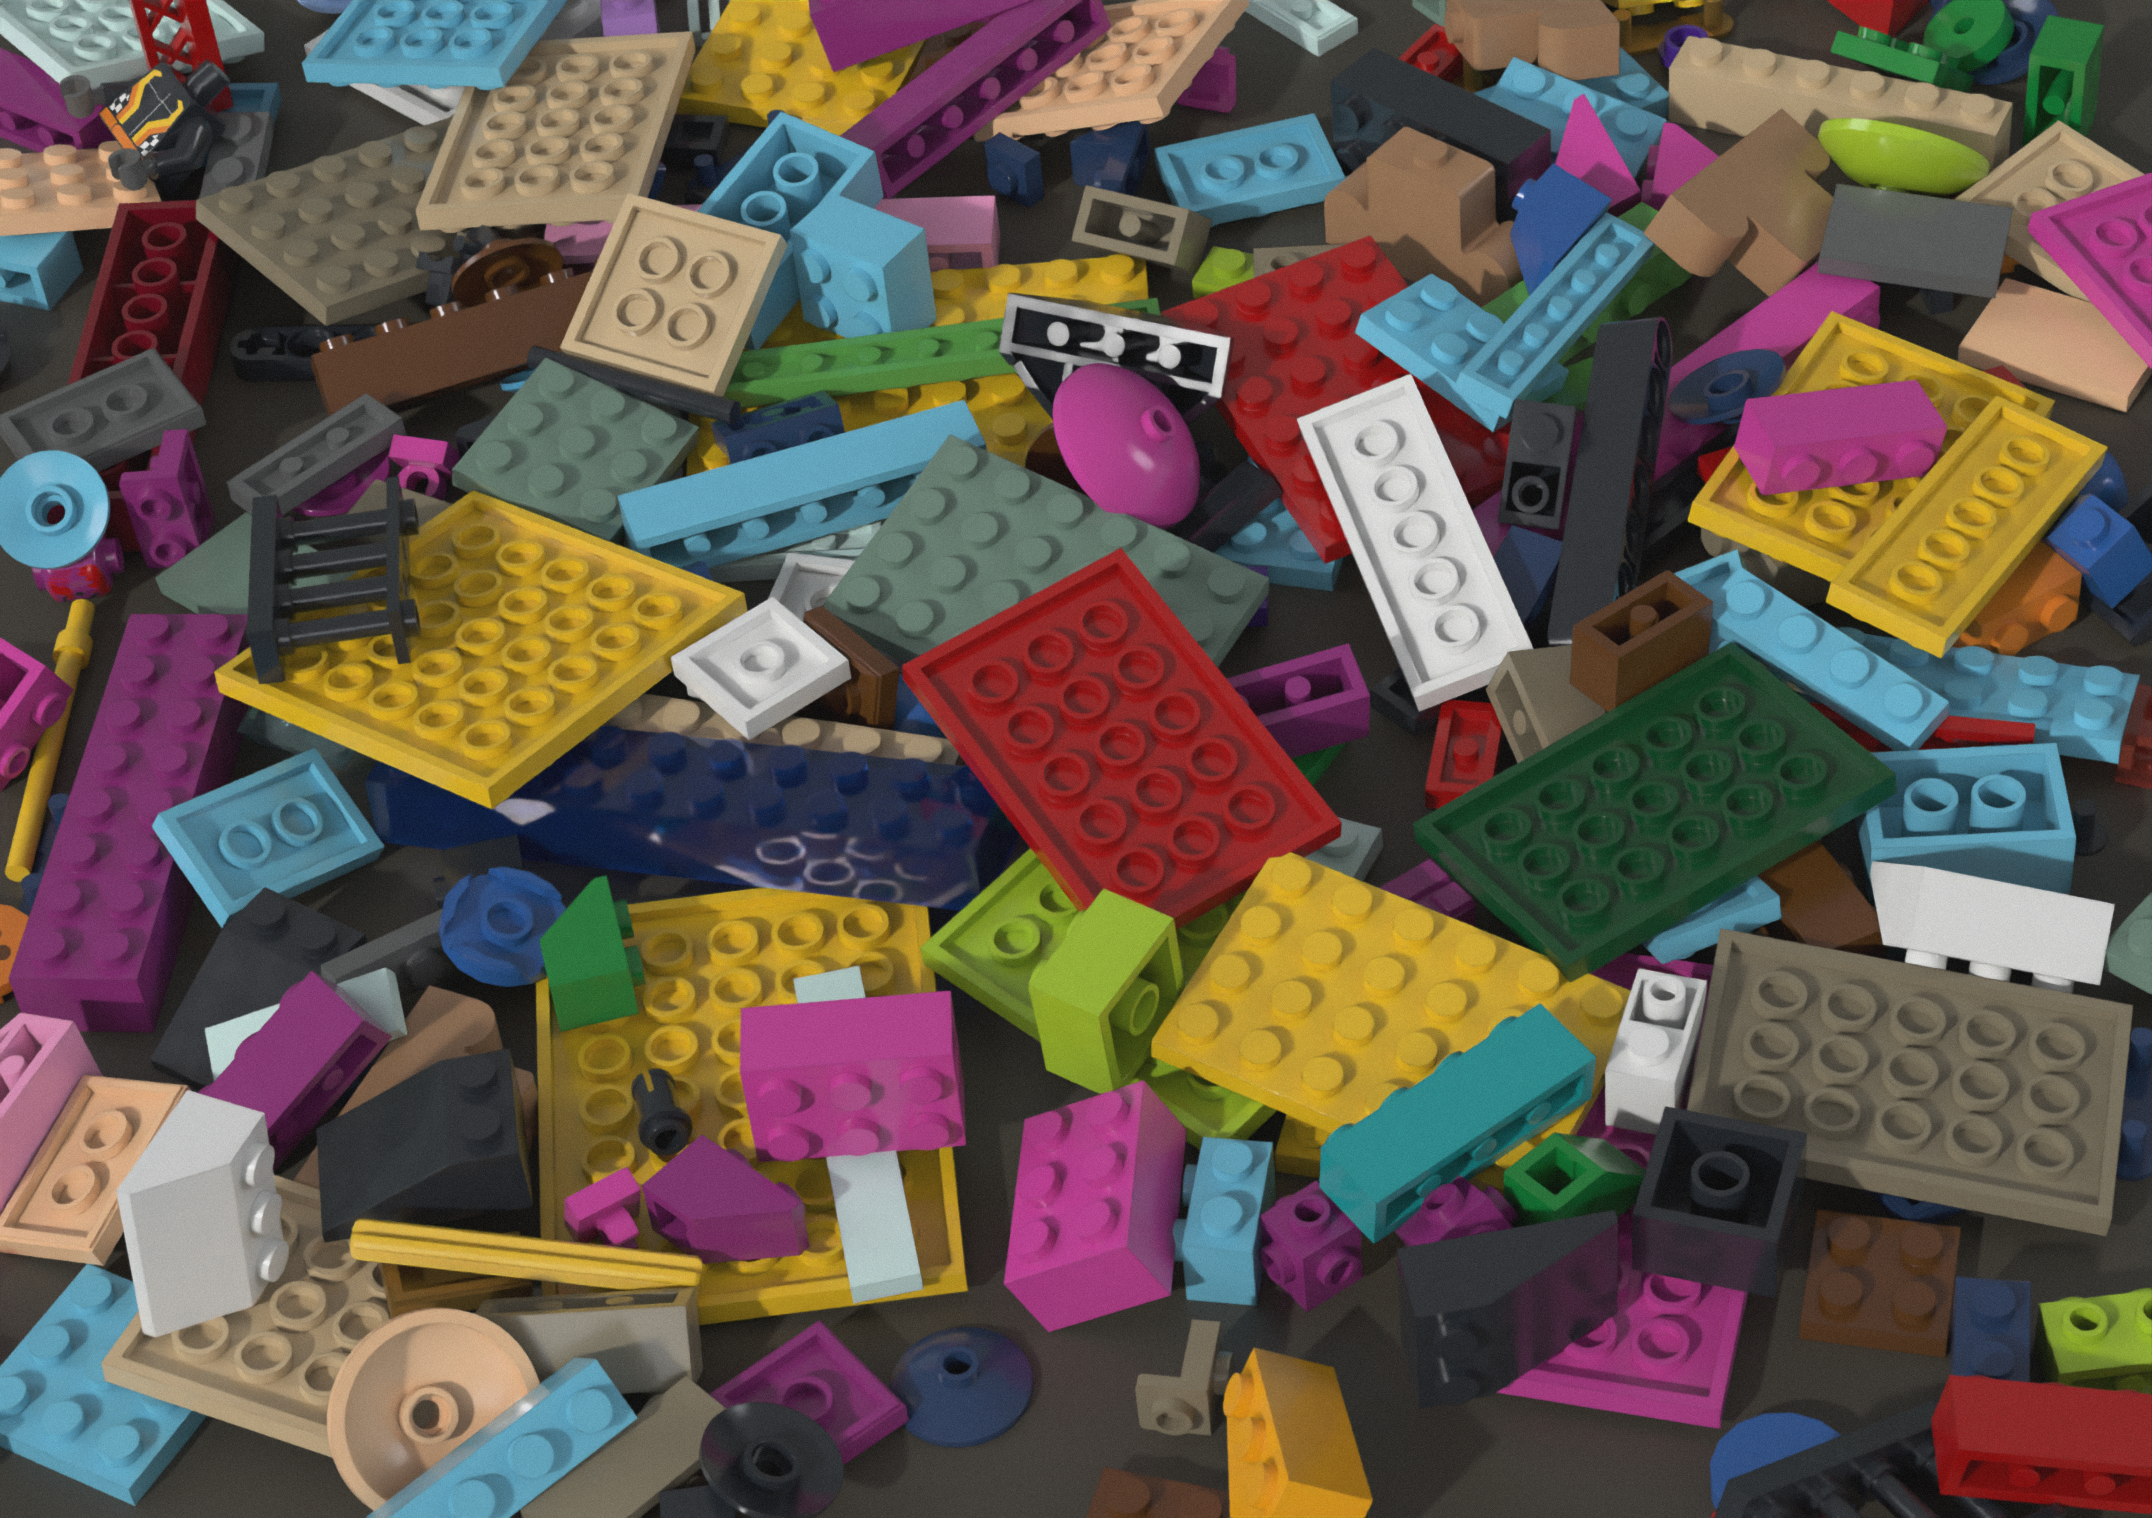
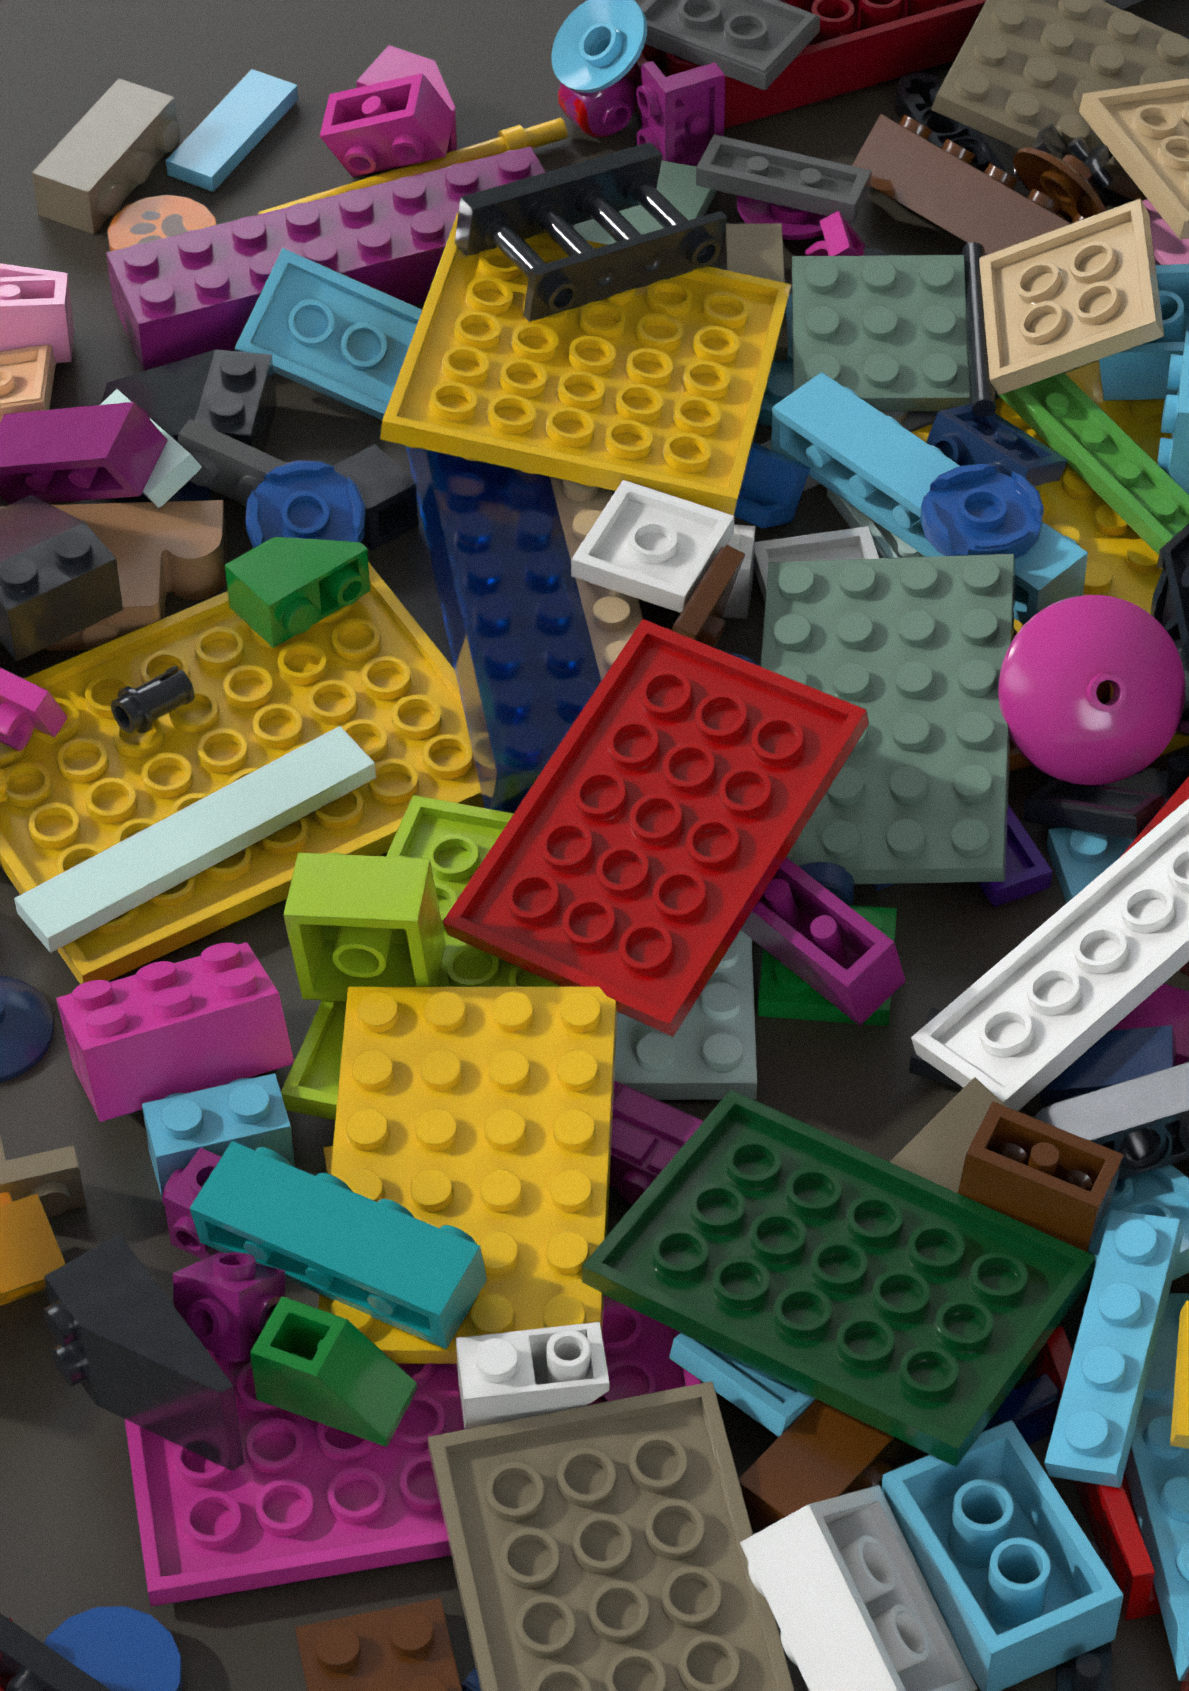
camera: 60 degrees right, 5 degrees up
(722, 1208) = (61, 774): magenta slope -> none
(853, 1076) = (191, 793): dark pink brick -> none
(878, 445) = (981, 512): none -> blue tile
(1463, 750) = (886, 1114): red plate -> none
(1719, 1201) = (354, 1492): black brick -> none

